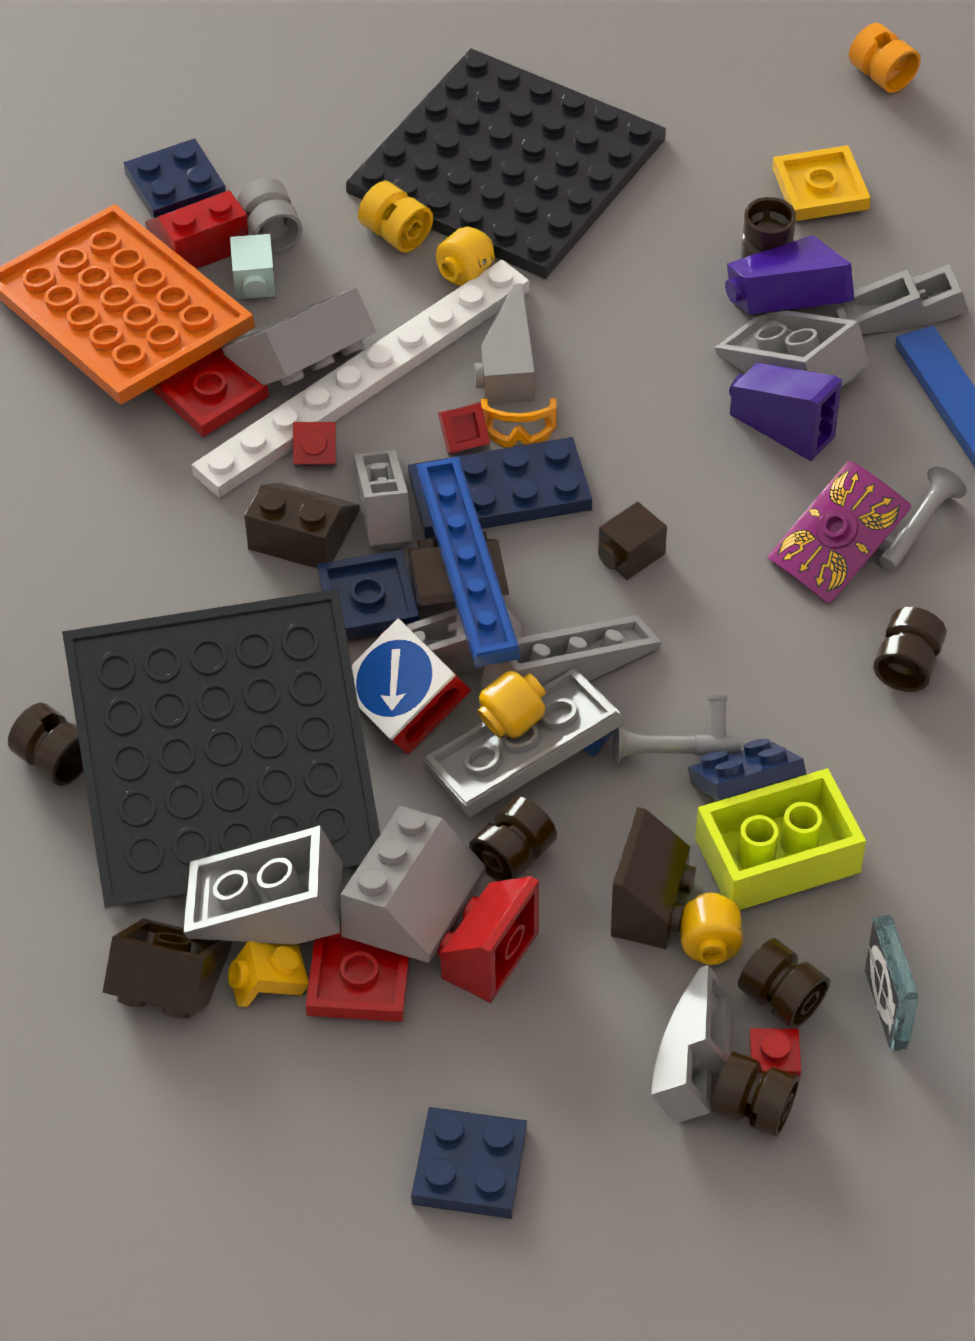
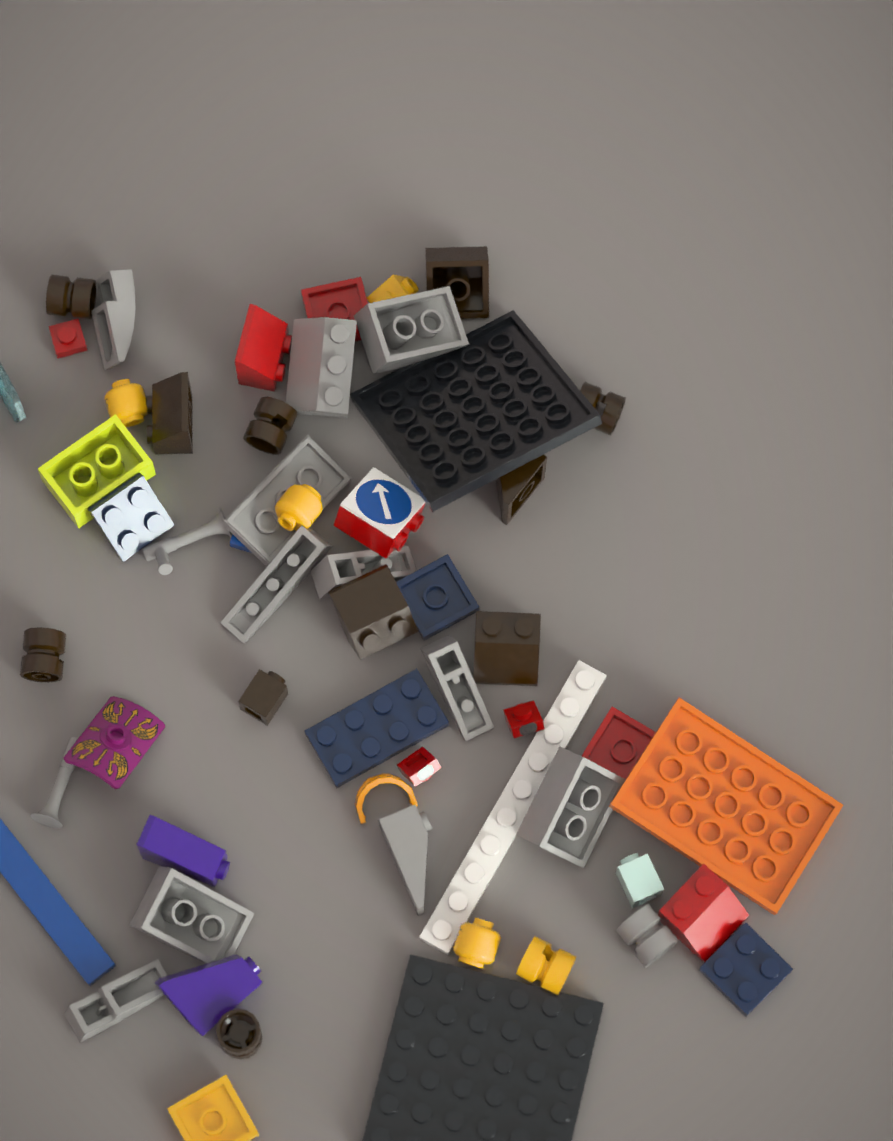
camera: 160 degrees right, 20 degrees up
(467, 562) = (365, 604): blue tile -> none
(469, 1162) = (231, 218): dark blue plate -> none
(790, 987) = (67, 373): dark brown wheel -> none

